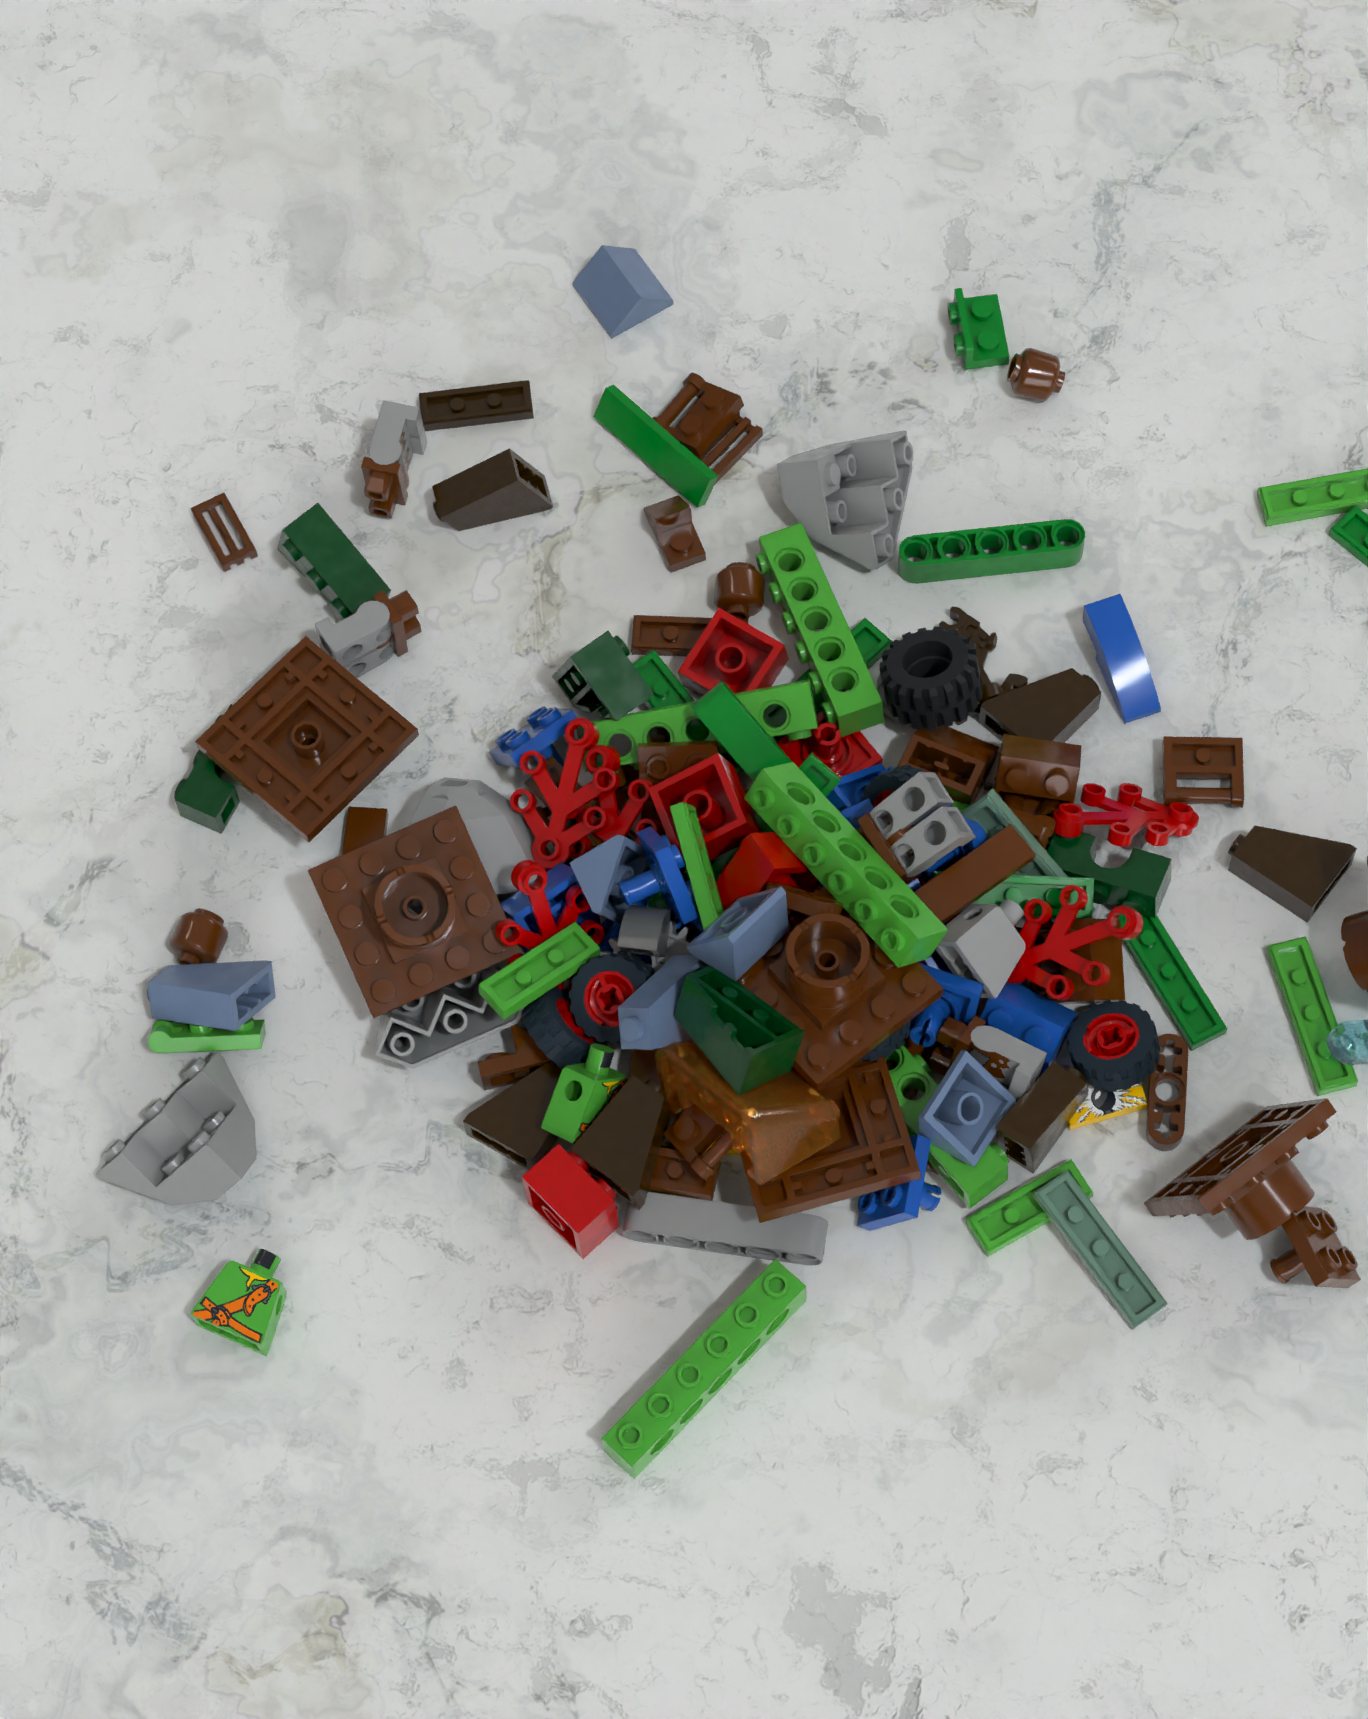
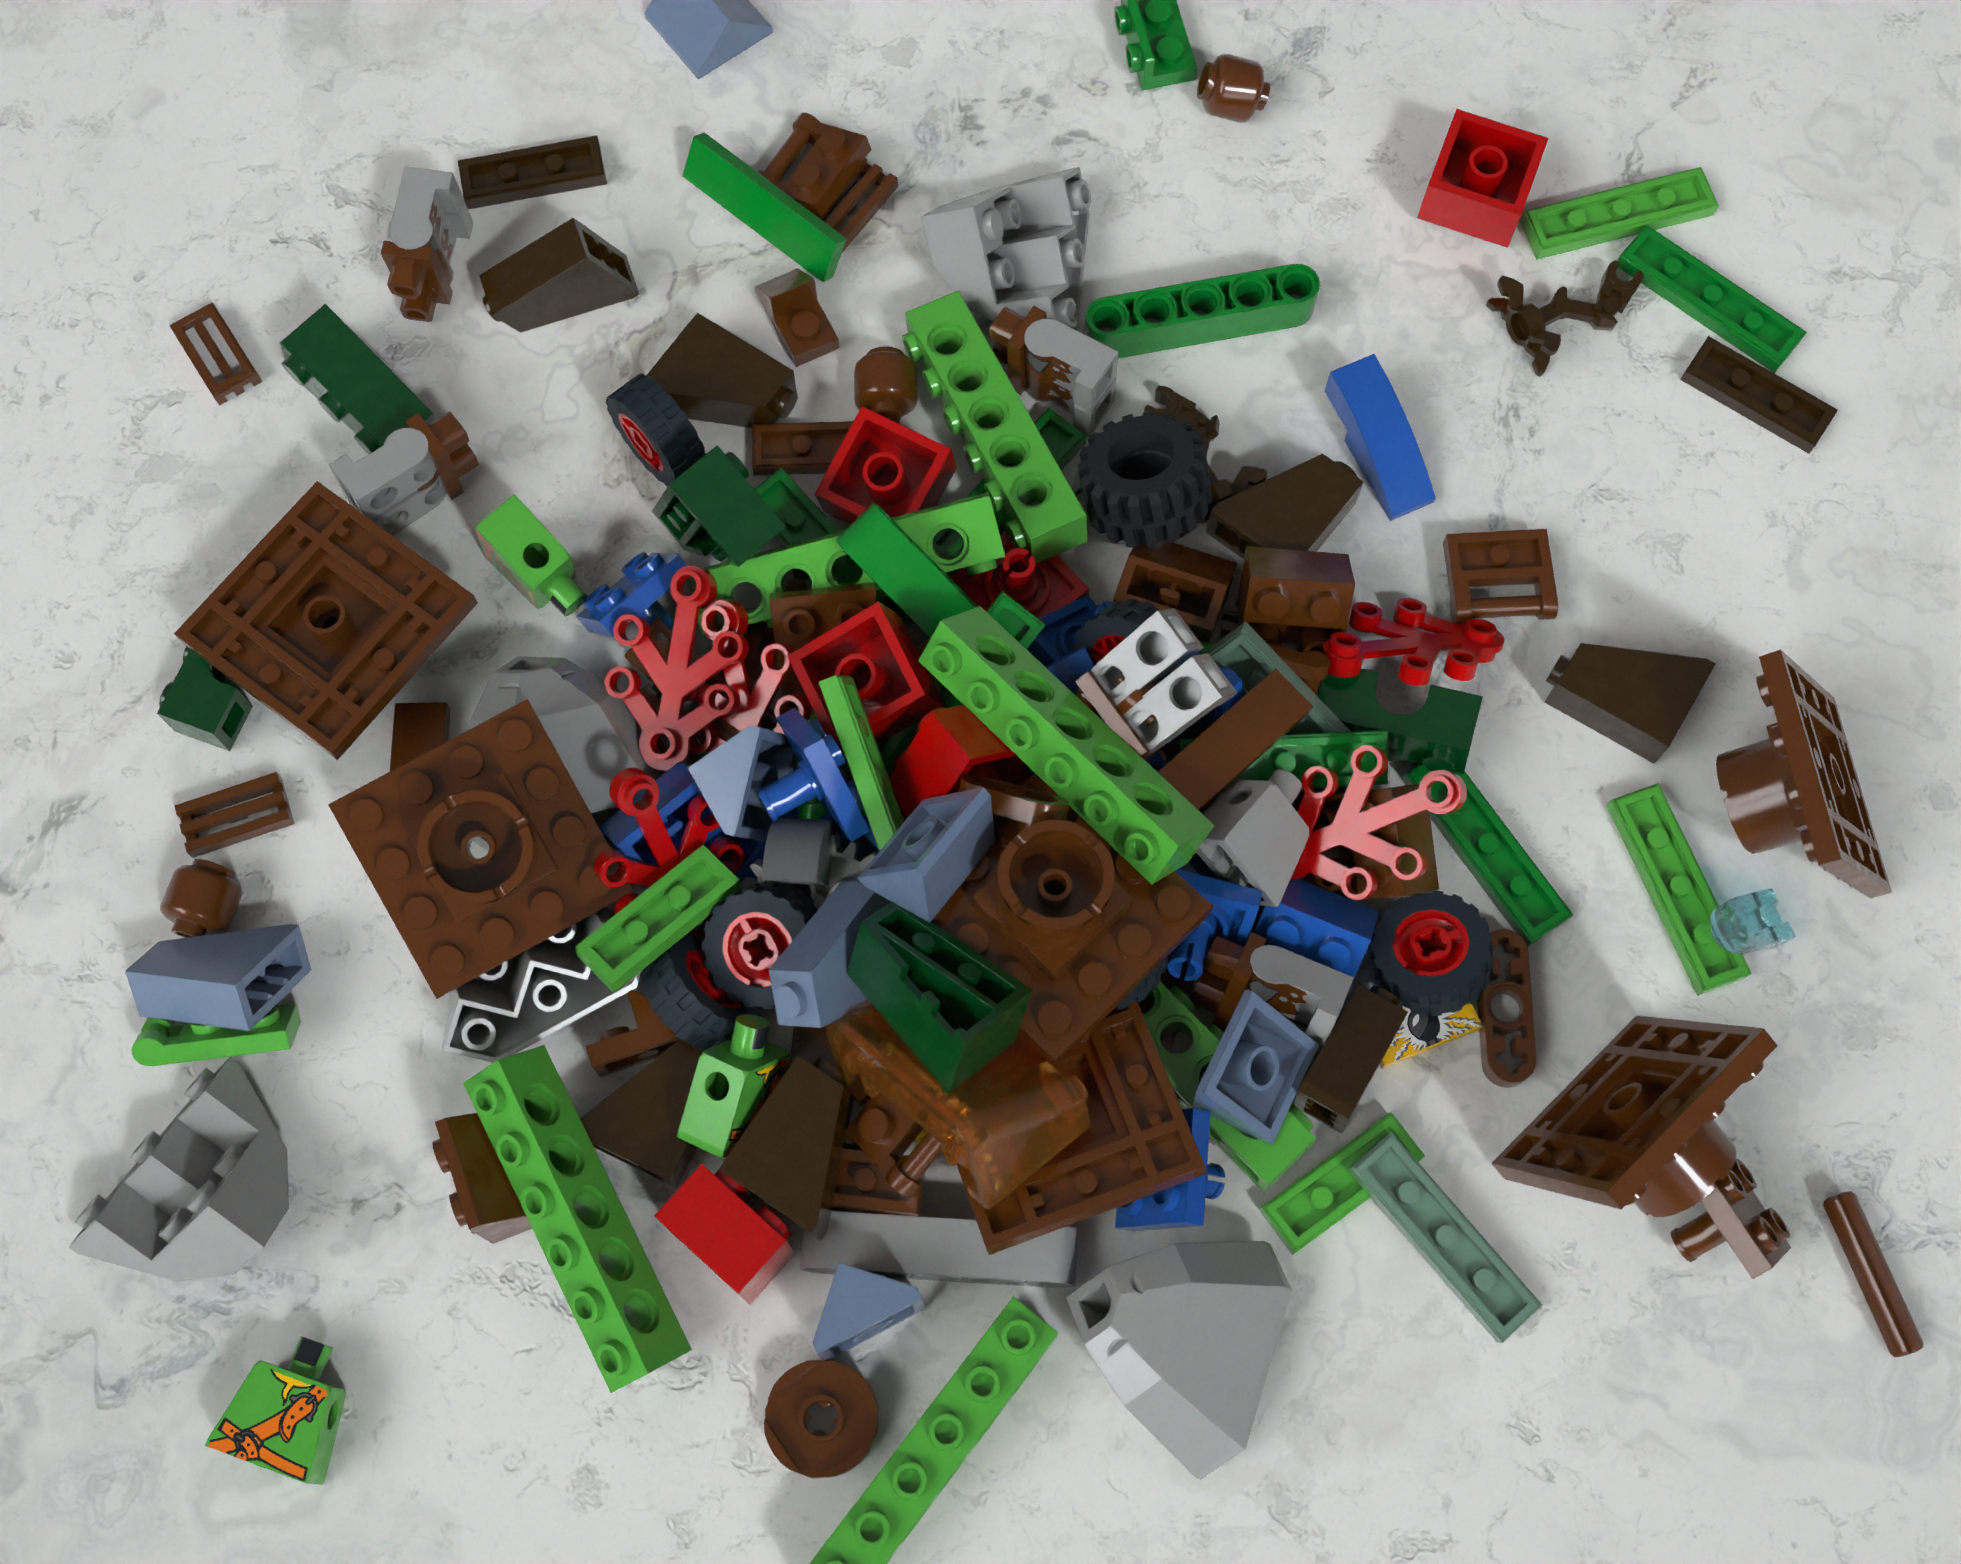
camera: 10 degrees left, 5 degrees up
(220, 867) = (227, 797): none -> reddish brown tile
(404, 1147) = (483, 1190): none -> reddish brown slope
(458, 704) = (530, 557): none -> bright green torso
(464, 1179) = (577, 1217): none -> bright green brick
(560, 614) = (655, 428): none -> black wheel
(610, 579) = (724, 377): none -> dark brown slope
(629, 1362) = (828, 1385): none -> reddish brown plate
(667, 1260) = (861, 1308): none -> sand blue slope
(872, 586) = (1056, 365): none -> hips
(900, 1301) = (1188, 1341): none -> light grey brick
(1224, 460) = (1482, 178): none -> red brick
(1249, 577) = (1528, 323): none -> dark brown piece

